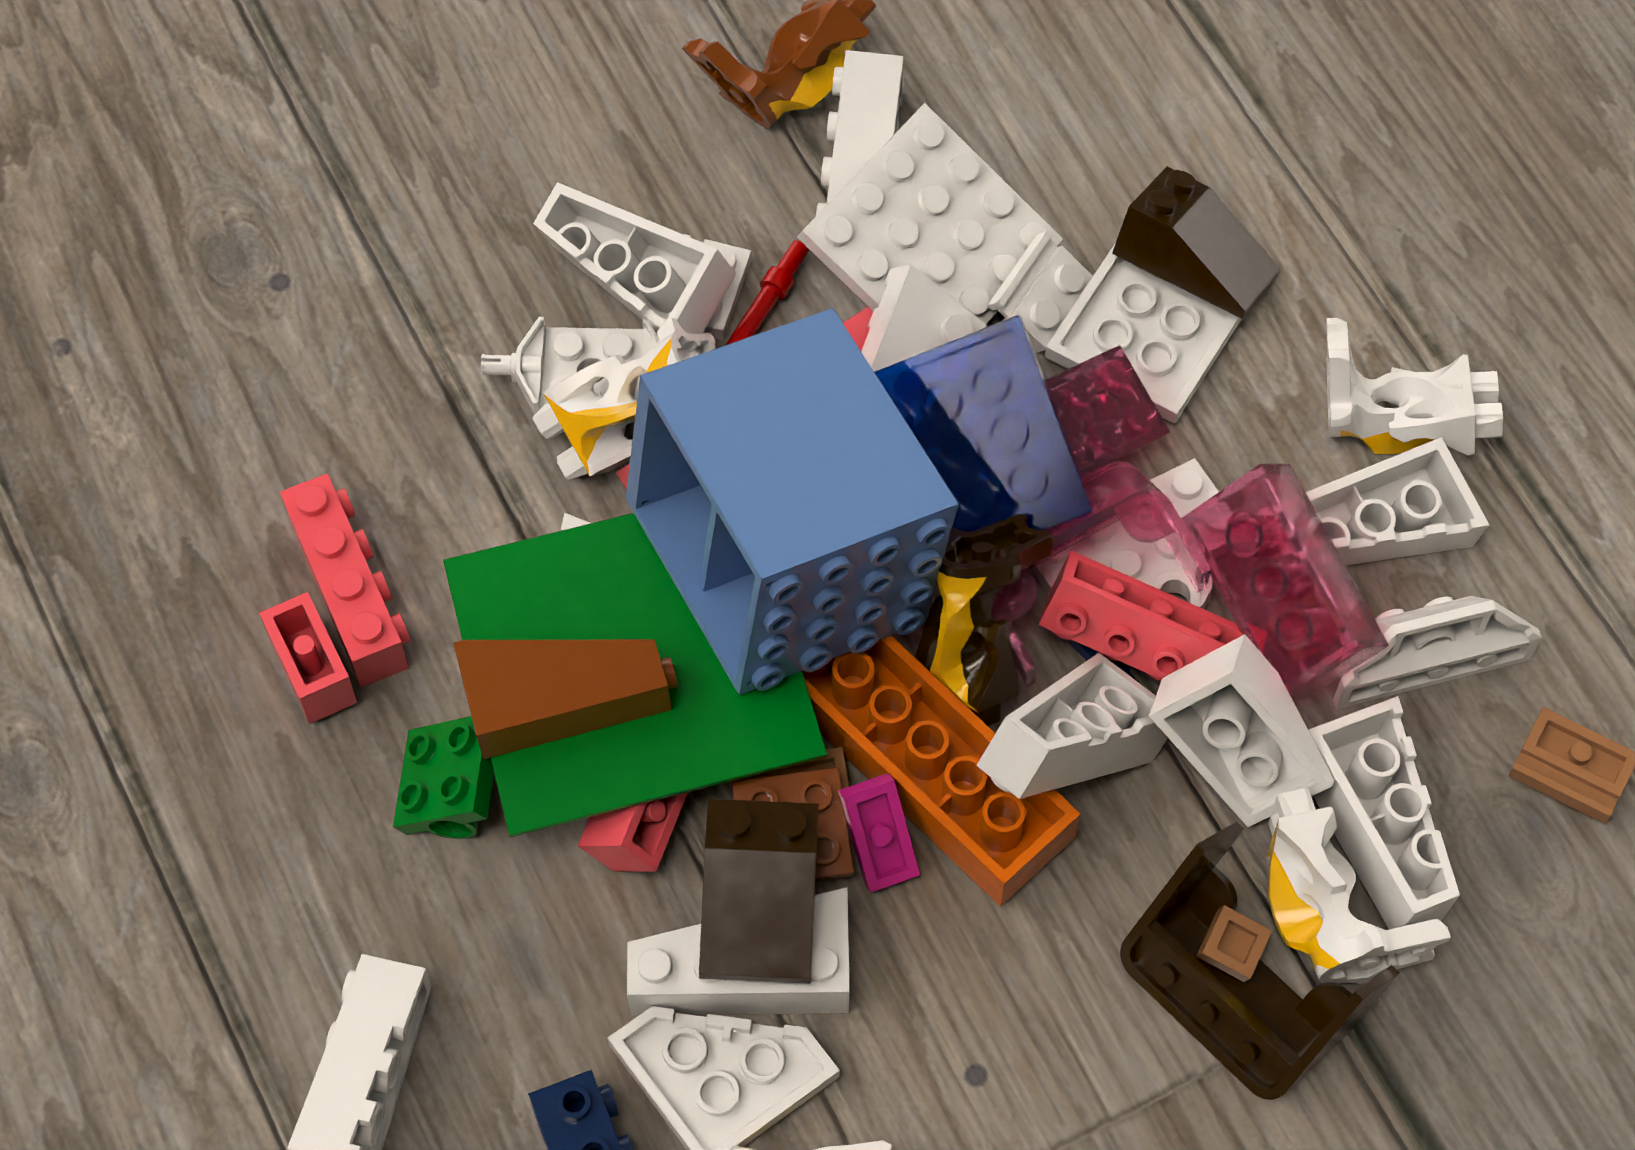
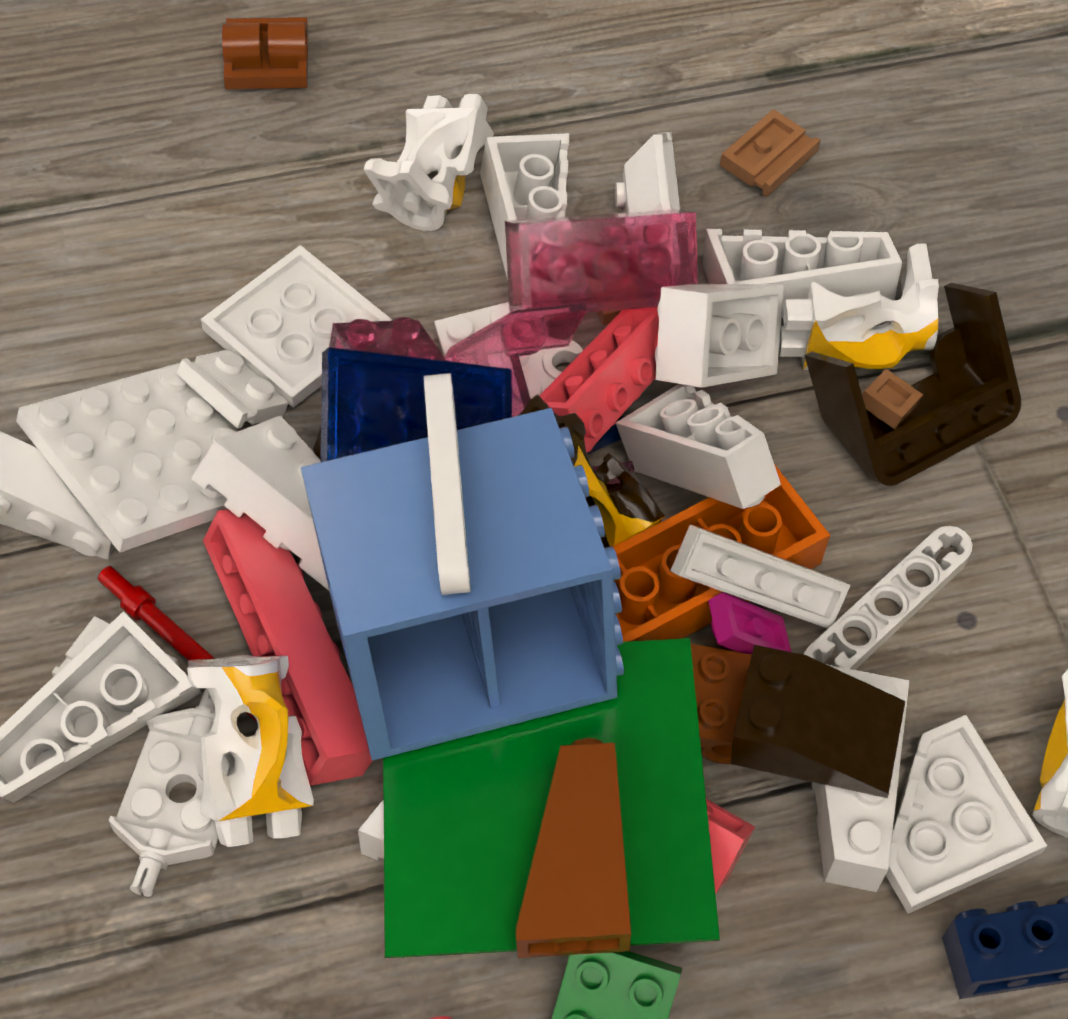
camera: 80 degrees left, 5 degrees down
(824, 418) = (446, 485): none -> white beam
(927, 820) = (759, 577): none -> white tile
(977, 1005) = (899, 589): none -> white beam
(1195, 243) = (227, 265): dark brown slope -> none
(1516, 202) = (265, 53): none -> dark orange plate

